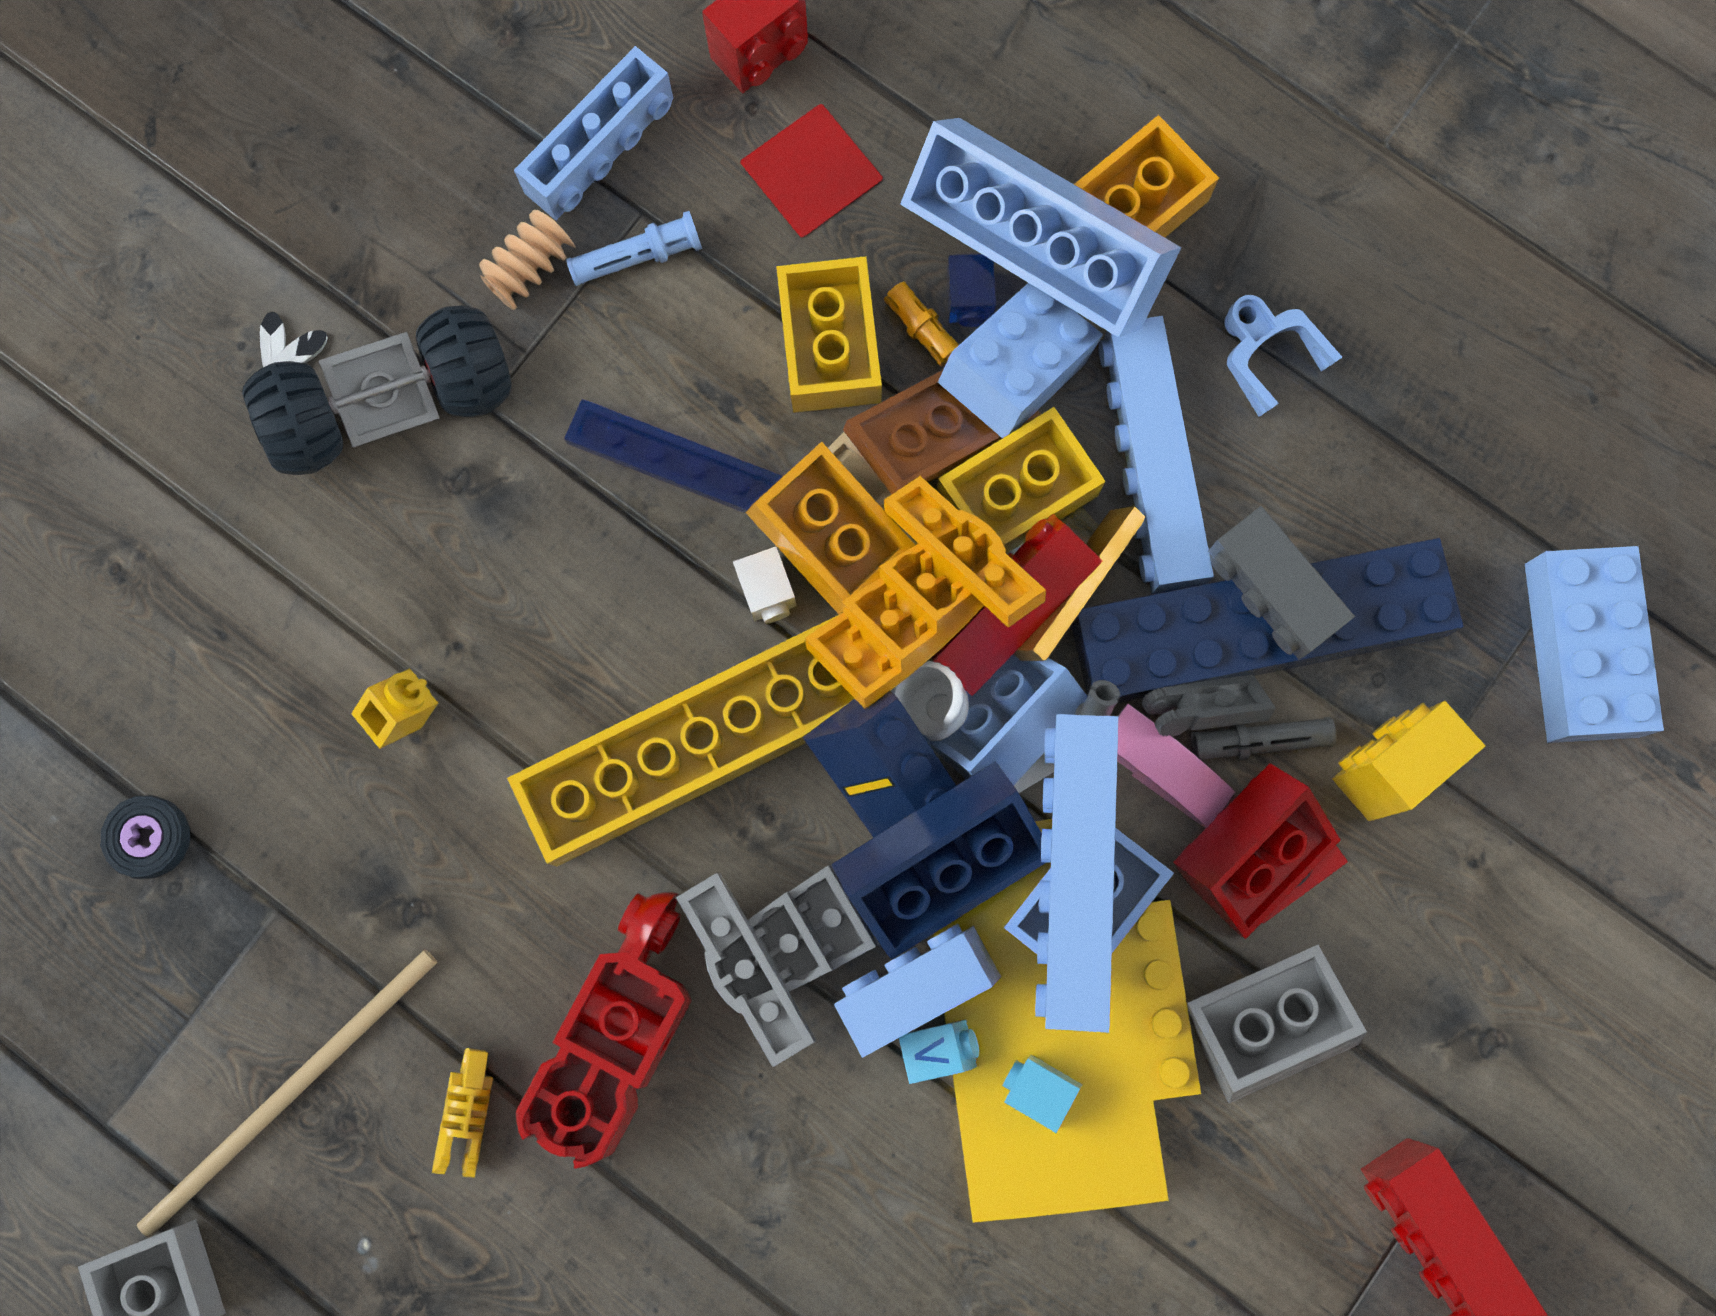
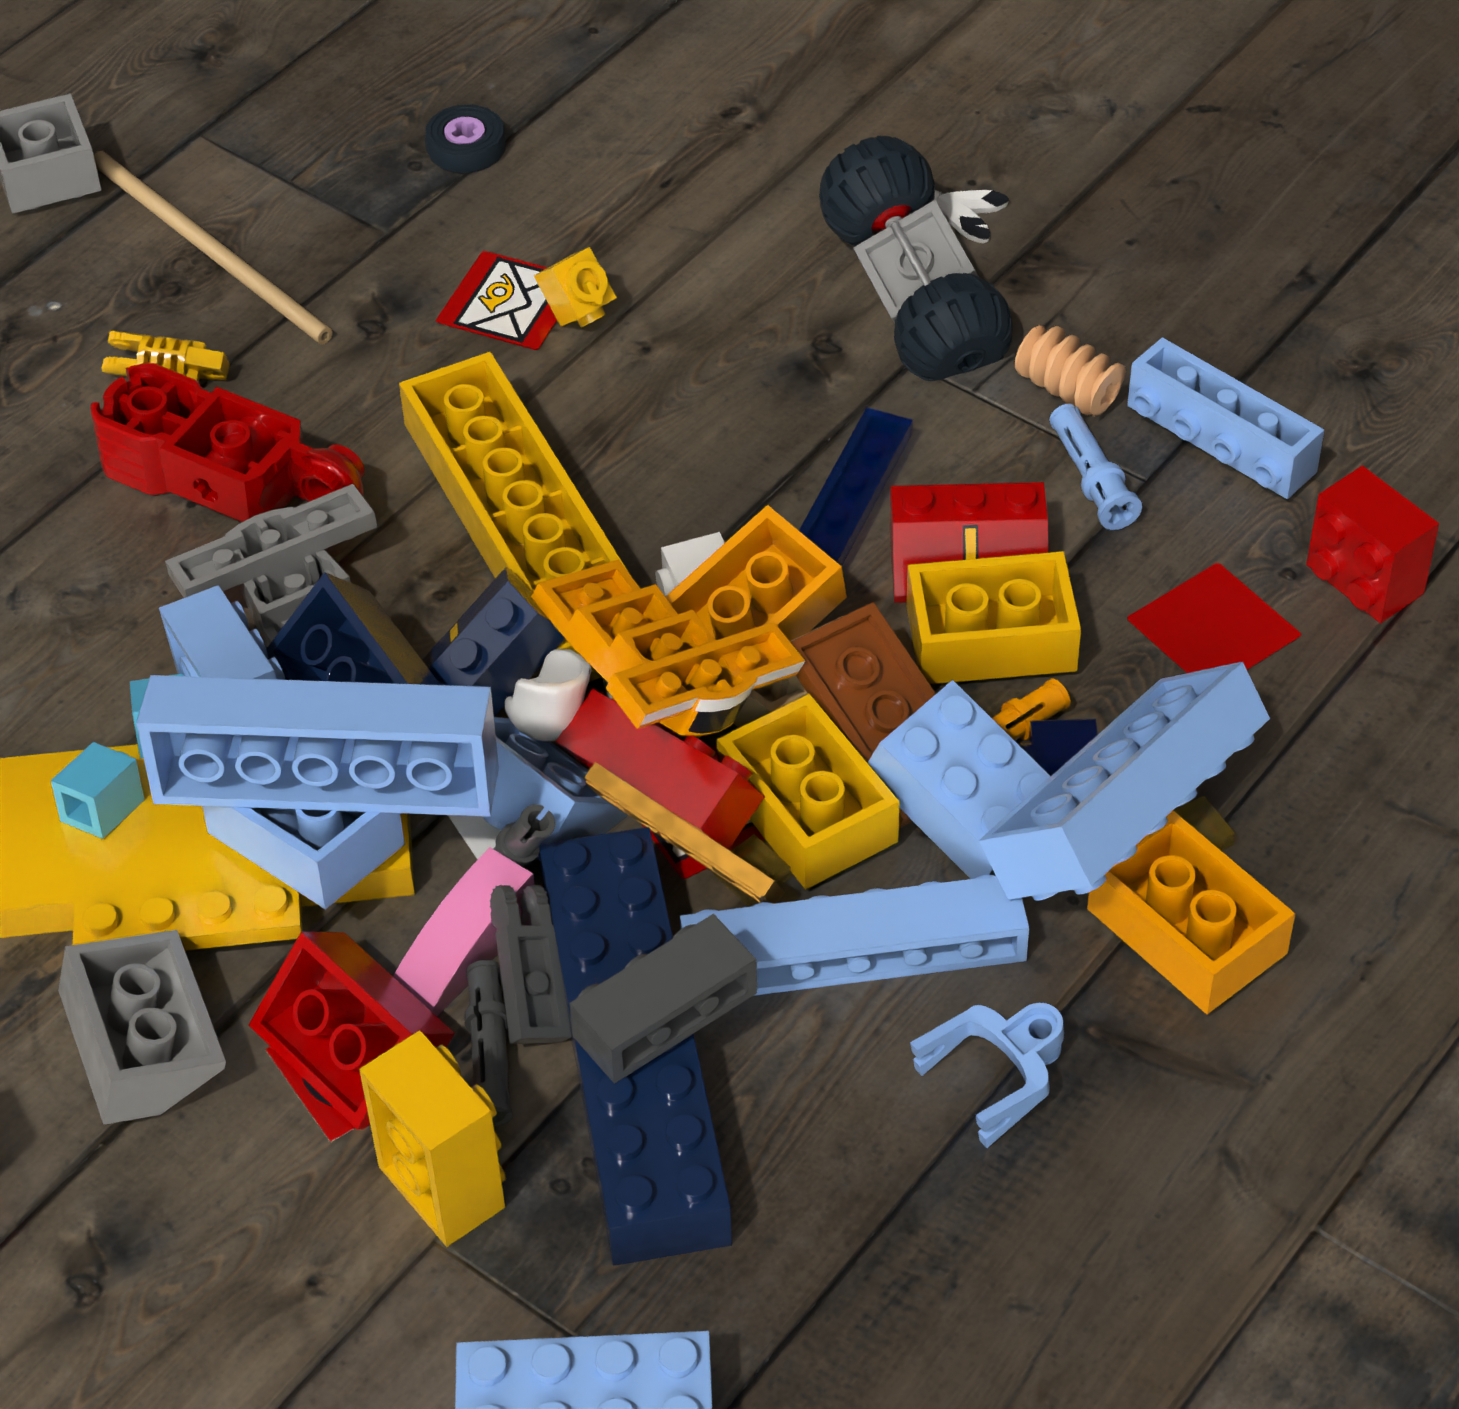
camera: 90 degrees right, 30 degrees down
(383, 788) = (501, 302): none -> sticker
(732, 355) = (964, 524): none -> red slope

